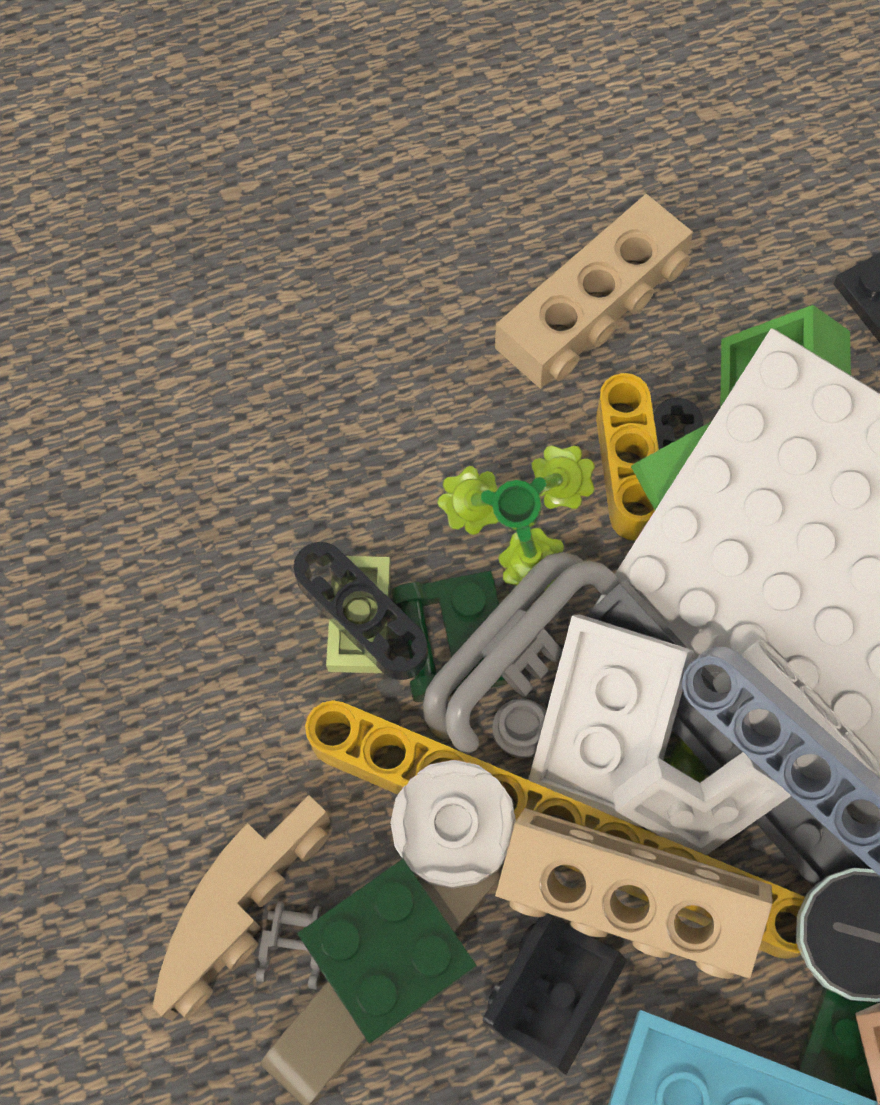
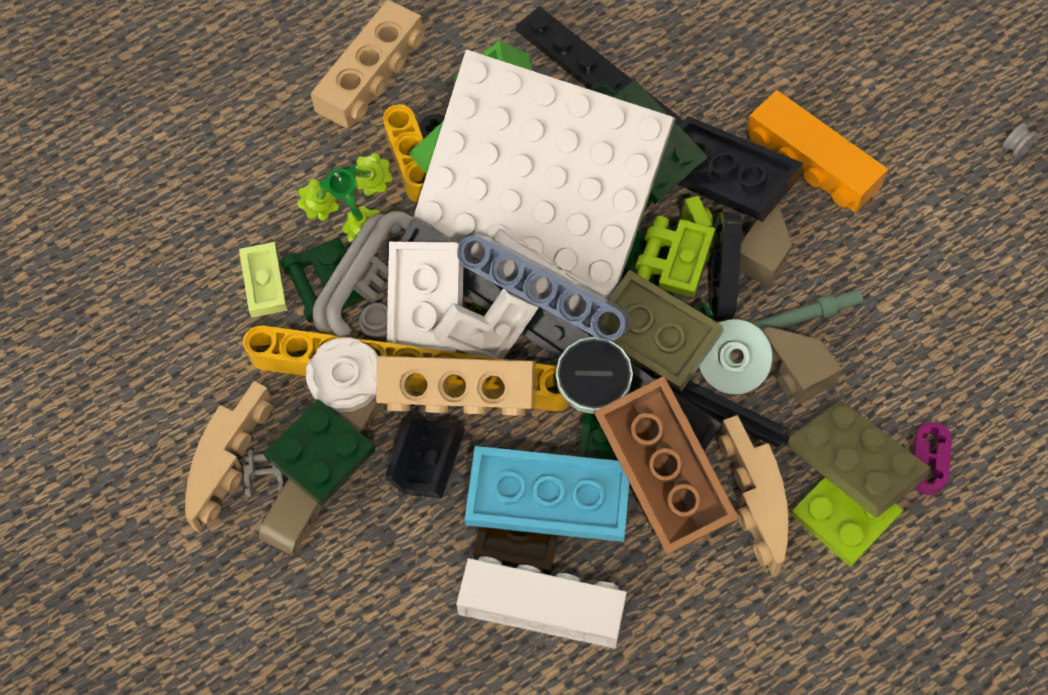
camera: 15 degrees left, 5 degrees down
(400, 629) = (256, 259): black beam -> none

